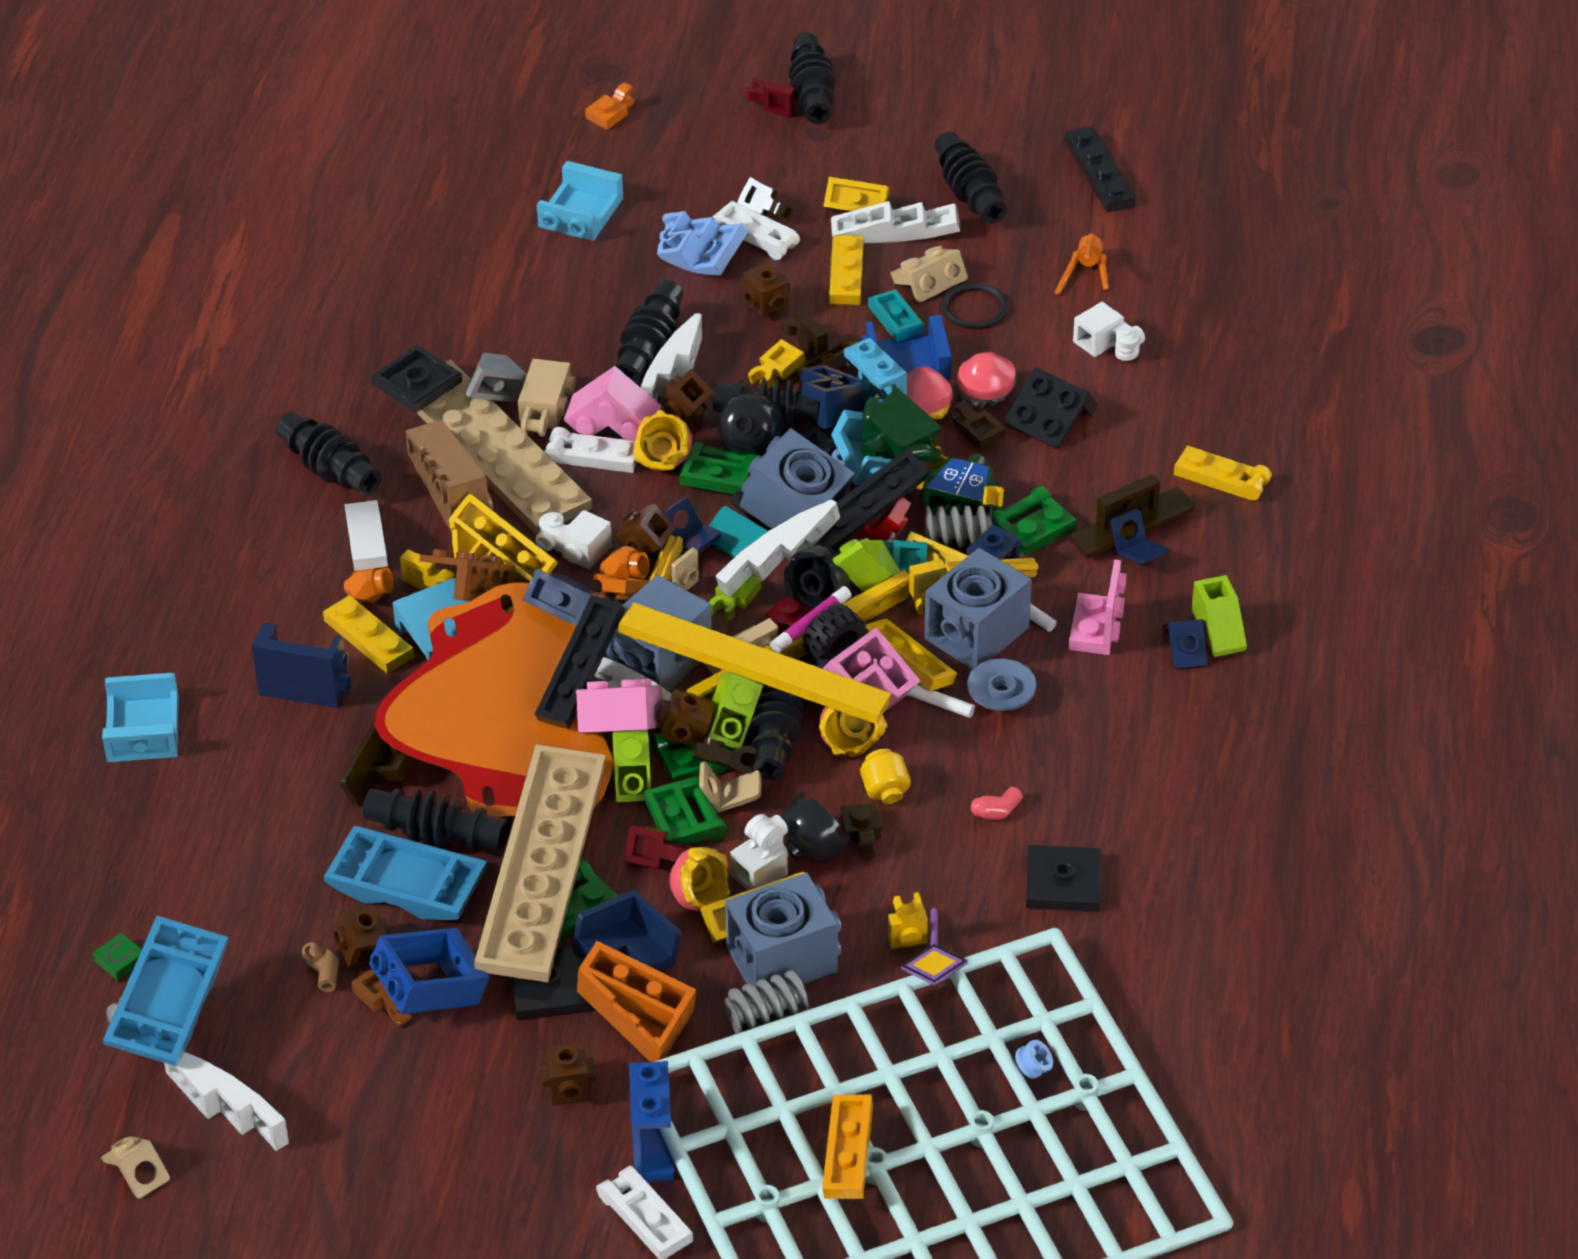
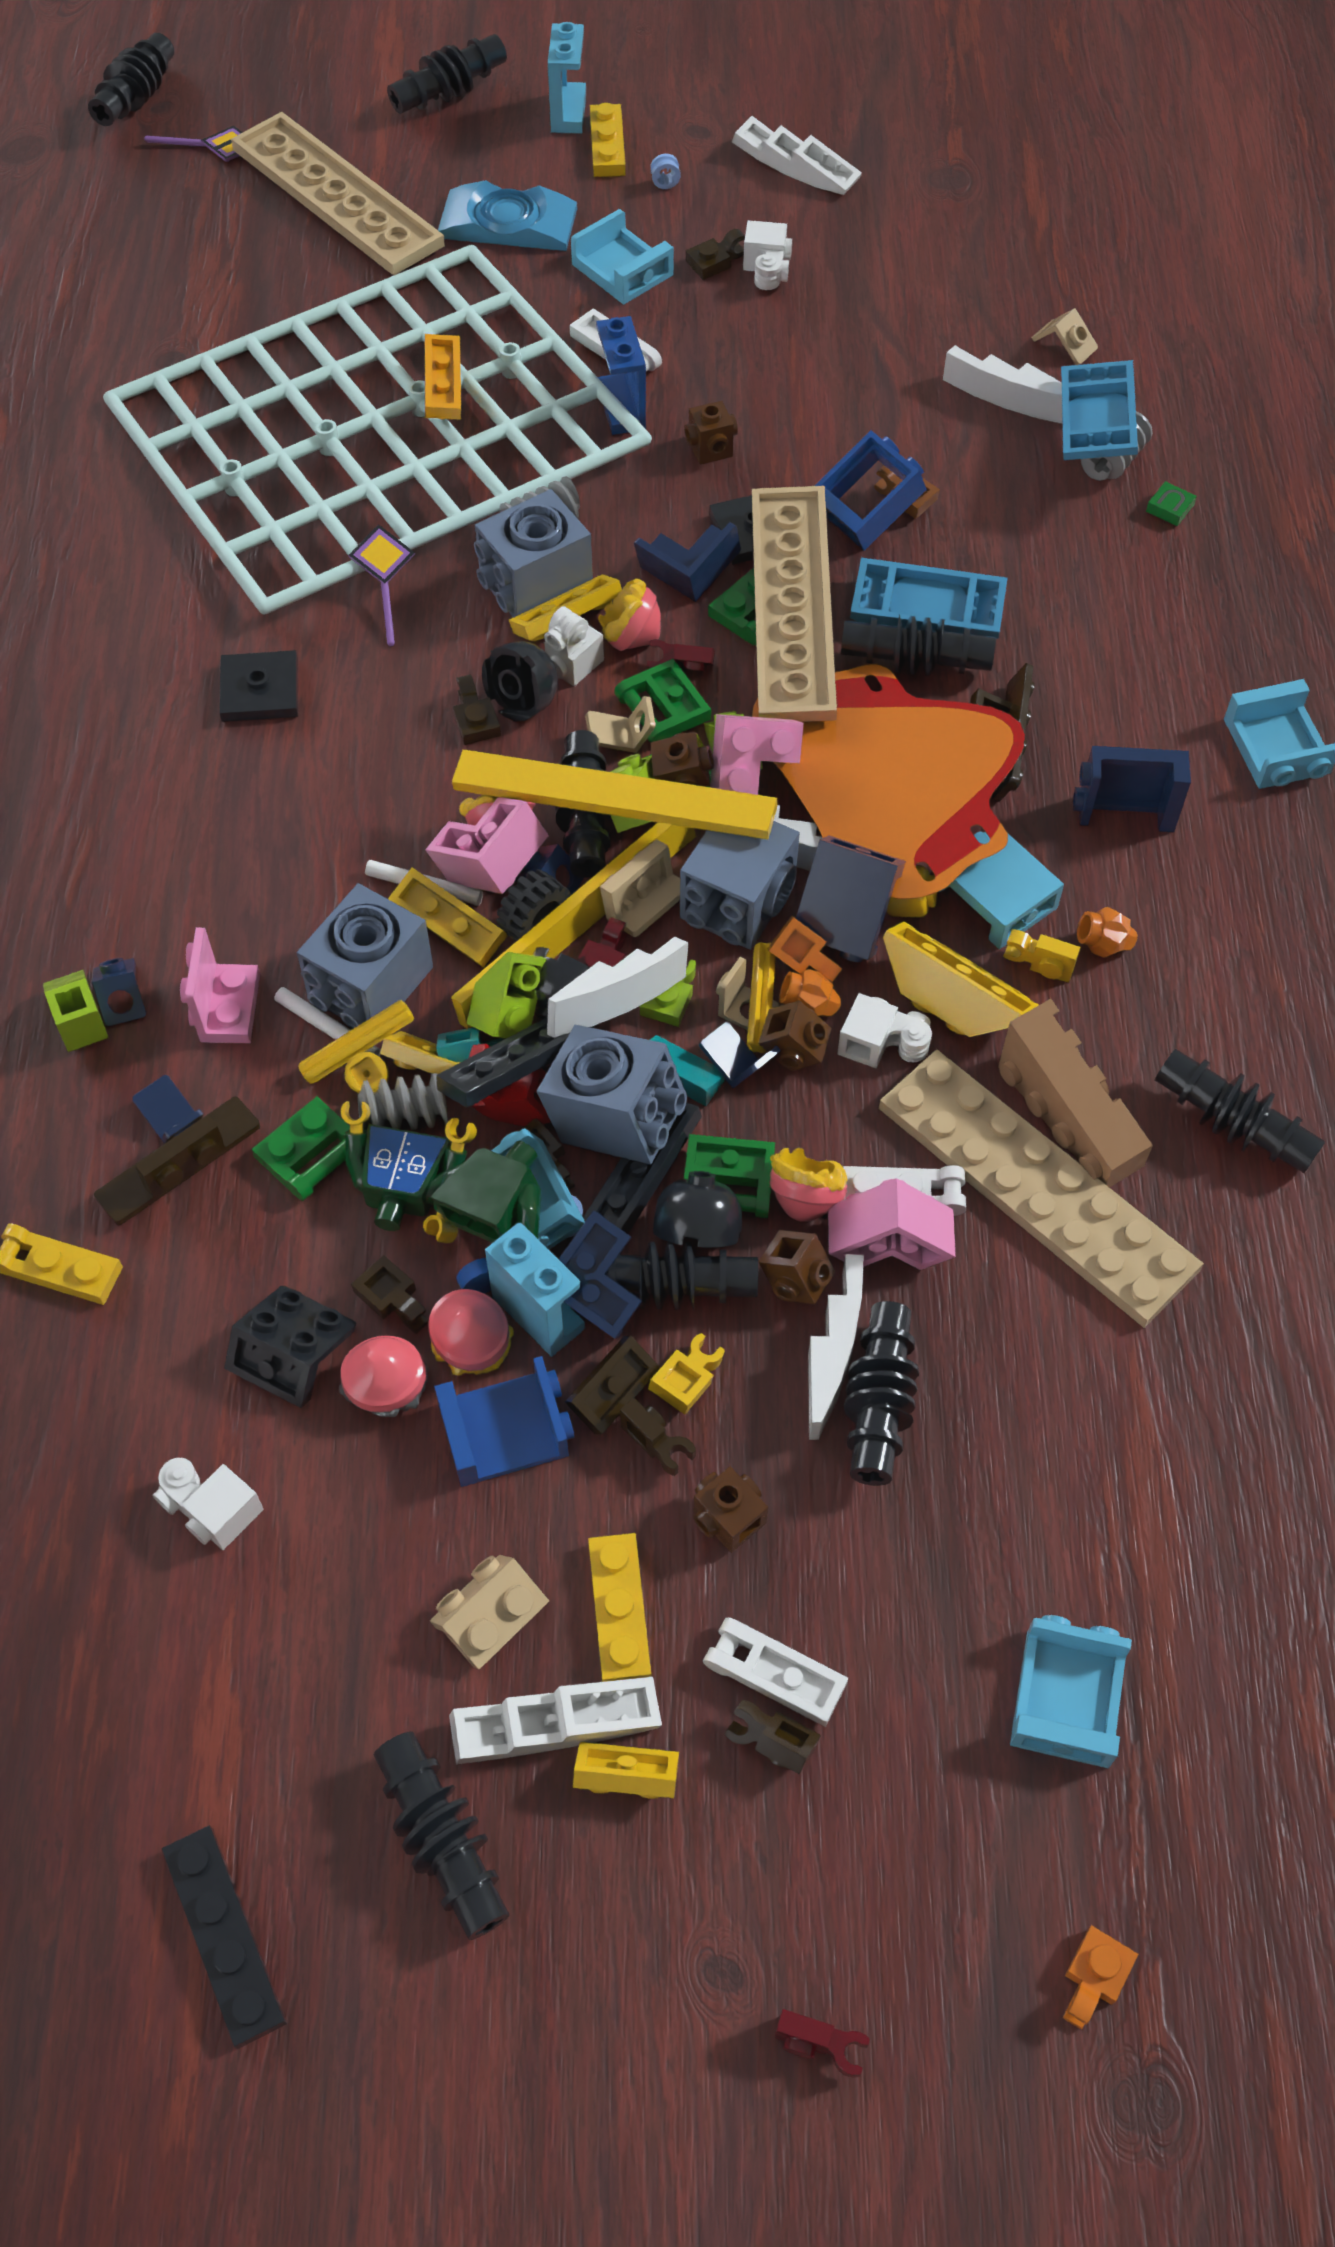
camera: 170 degrees right, 15 degrees up
(324, 963) = (971, 517): medium nougat arm -> none
(358, 934) = (945, 524): reddish brown brick -> none
(366, 535) = (1138, 987): white slope -> none
(368, 634) = (1086, 882): yellow plate -> none
(416, 378) = (1173, 1240): black plate -> none
(474, 576) = (990, 925): dark orange bracket -> none
(496, 379) = (1072, 1263): light grey slope -> none
(545, 395) = (993, 1261): tan brick -> none
(580, 661) = (812, 786): black plate -> none
(636, 999) = (662, 487): orange wedge -> none
(699, 243) = (861, 1627): light blue slope -> none
(713, 752) = (635, 738): dark brown plate -> none
(801, 625) = (562, 906): bar -> none
(812, 78) = (754, 2091): black piece -> none
(885, 776) = (445, 754): yellow head -> none
(896, 315) = (529, 1502): teal plate -> none
(909, 923) = (413, 597): yellow plate -> none
(921, 578) = (430, 988): yellow plate -> none
(975, 325) = (417, 1602): black tyre -> none
(996, 807) = (328, 751): coral arm -> none
(997, 543) = (349, 1060): dark blue bracket -> none
(1001, 684) = (327, 877): sand blue dish -> none
(1034, 1059) = (280, 490): light blue bush -> none
(1088, 254) = (236, 1688): orange plant -> none

